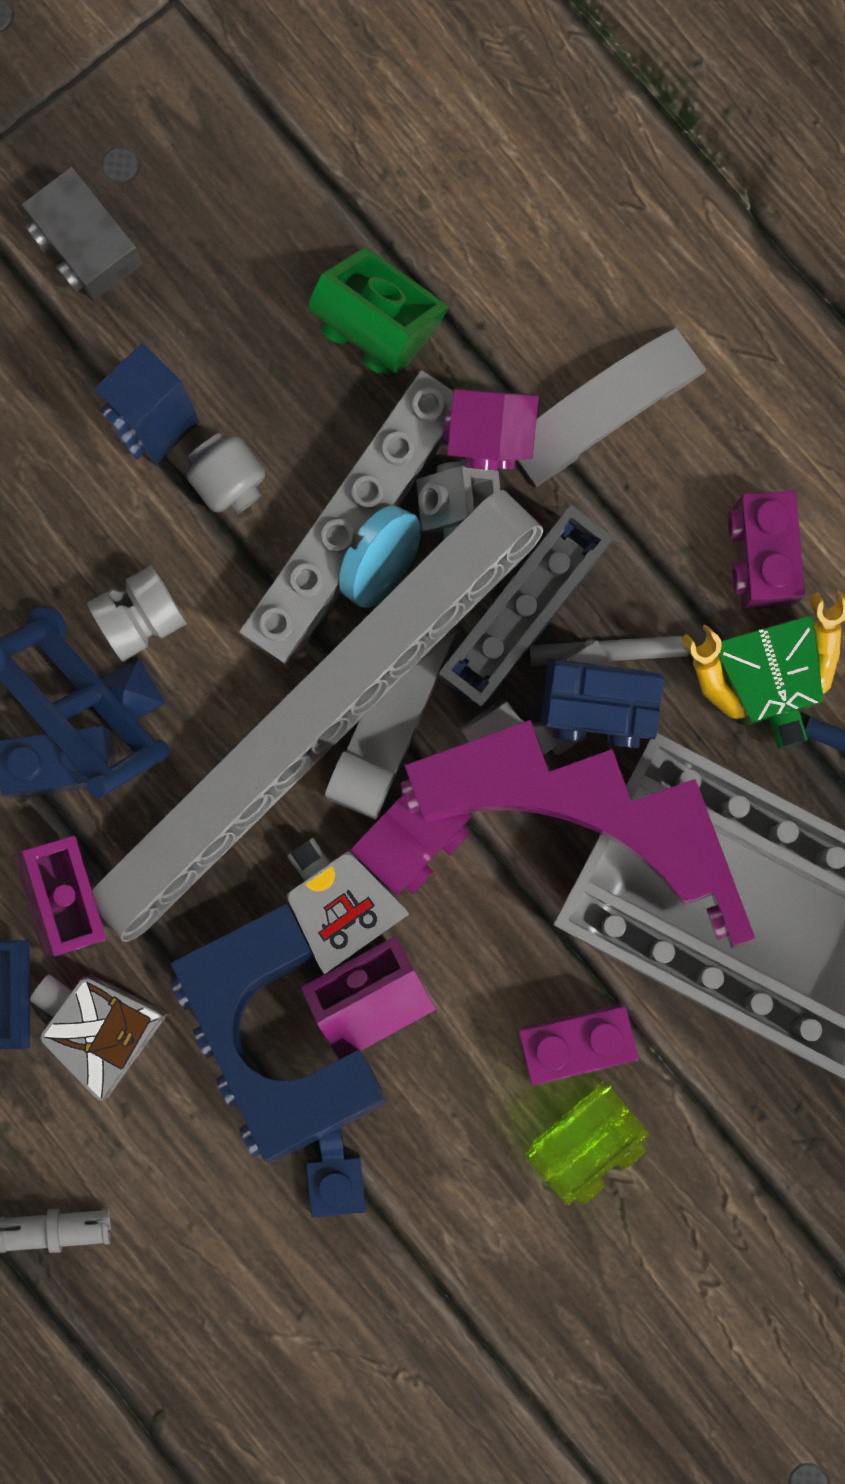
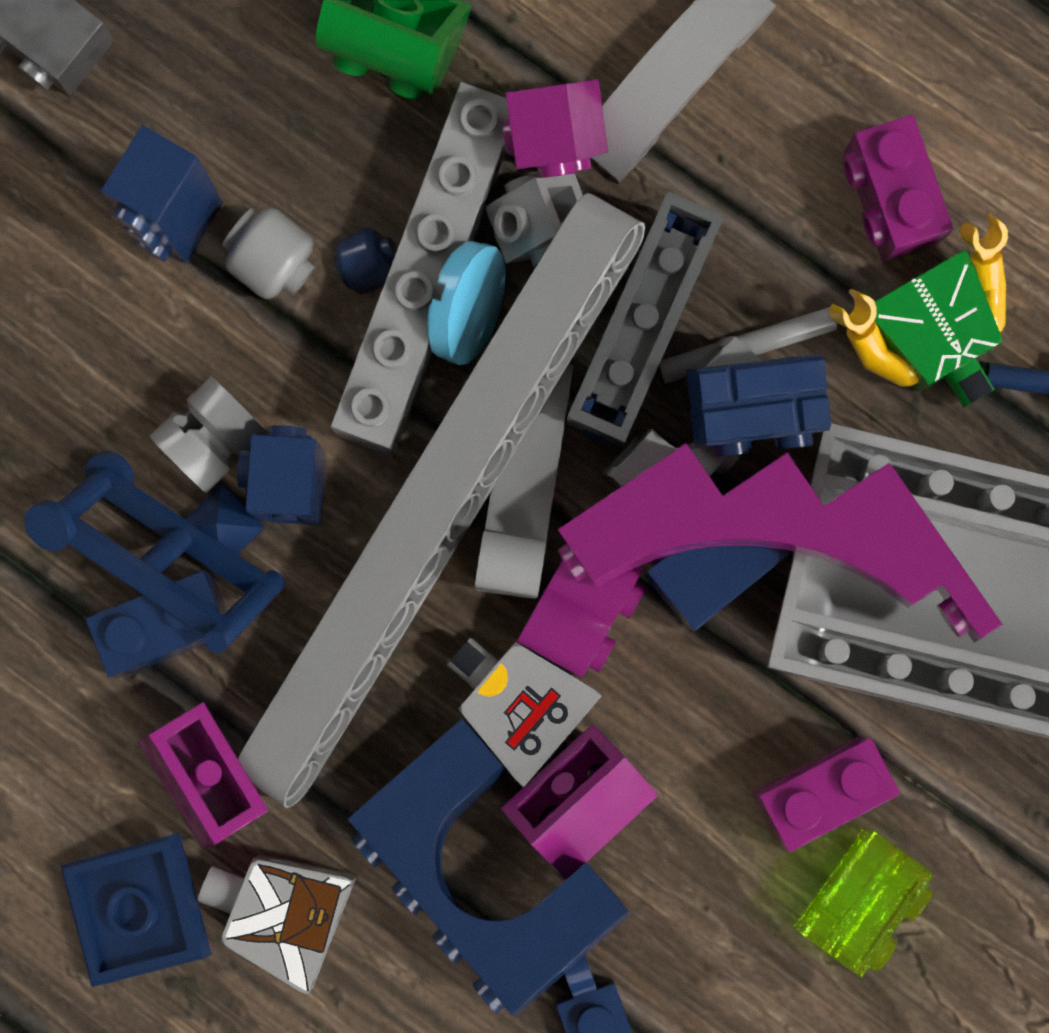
camera: 20 degrees left, 0 degrees up
(189, 664) = (283, 476): none -> dark blue brick
(305, 499) = (364, 260): none -> dark blue piece
(524, 838) = (708, 579): none -> dark blue brick

